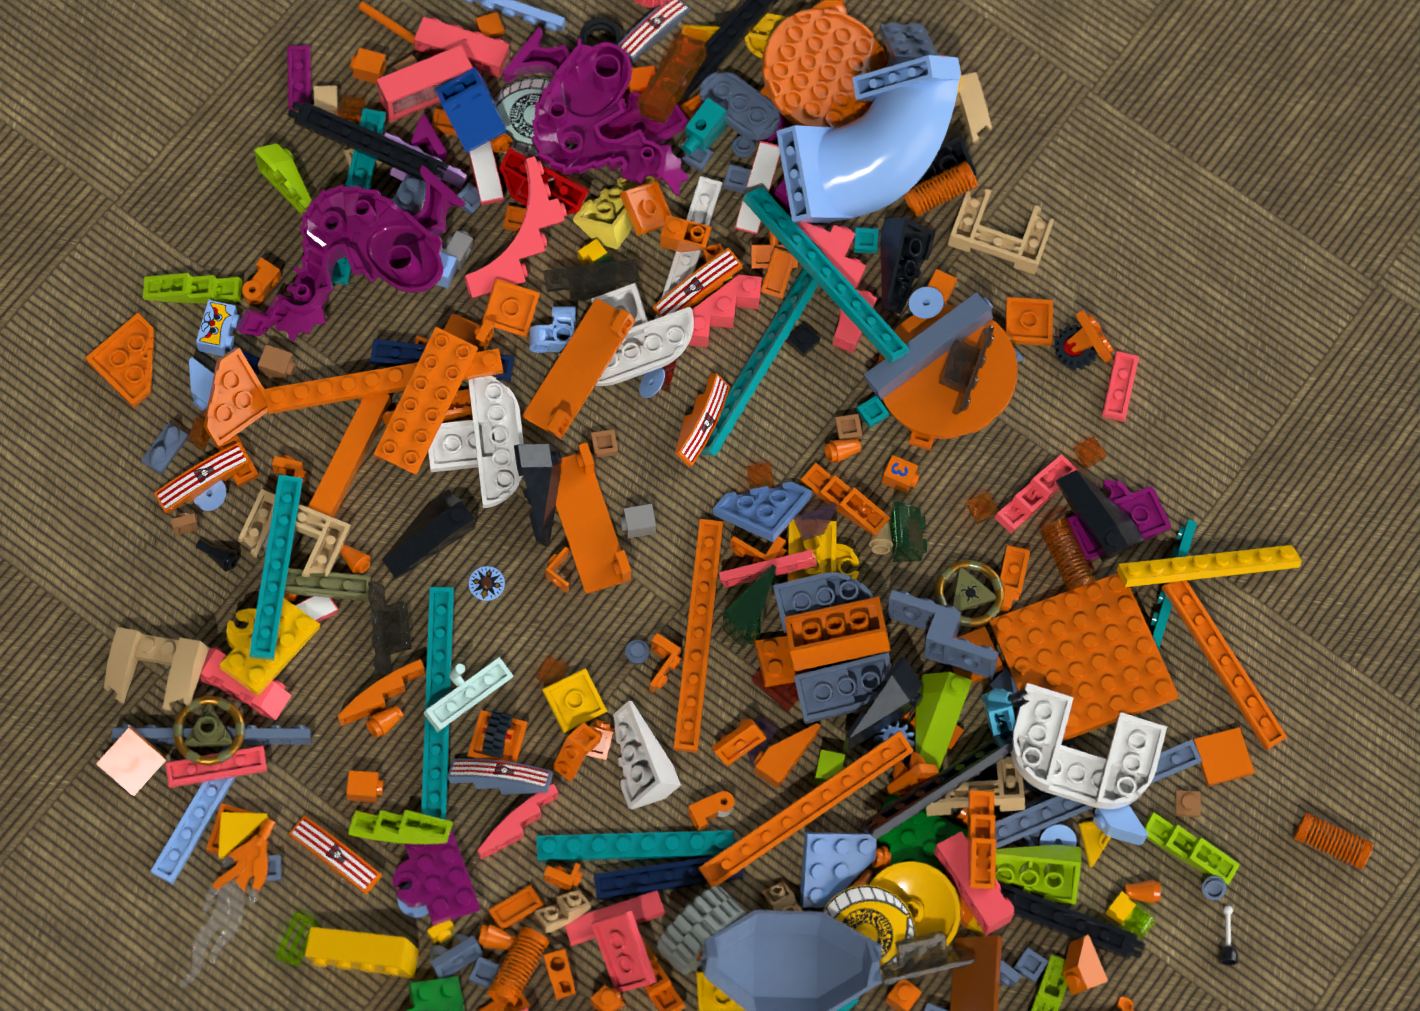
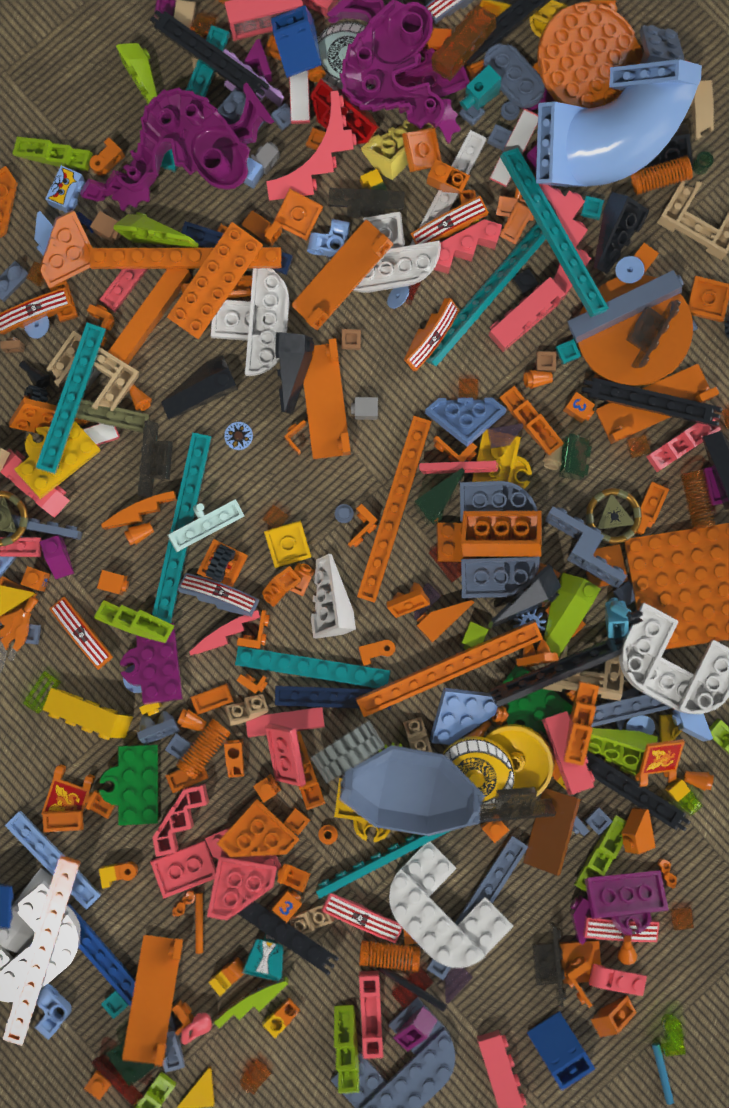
camera: 15 degrees right, 15 degrees up
(229, 594) = (33, 410): none -> orange plate
(265, 799) = (35, 579): none -> orange brick
(287, 768) = (57, 557): none -> magenta slope
(307, 431) = (121, 288): none -> coral tile
(327, 358) = (145, 230): none -> lime wedge
(549, 826) = (248, 641): none -> orange bracket
(813, 376) = (526, 314): none -> coral wedge
(986, 450) = (652, 401): none -> black hinge
(990, 160) = (707, 158): none -> clear green beam
(991, 454) = (624, 421): none -> orange bracket
(1089, 868) = (660, 758): none -> flag

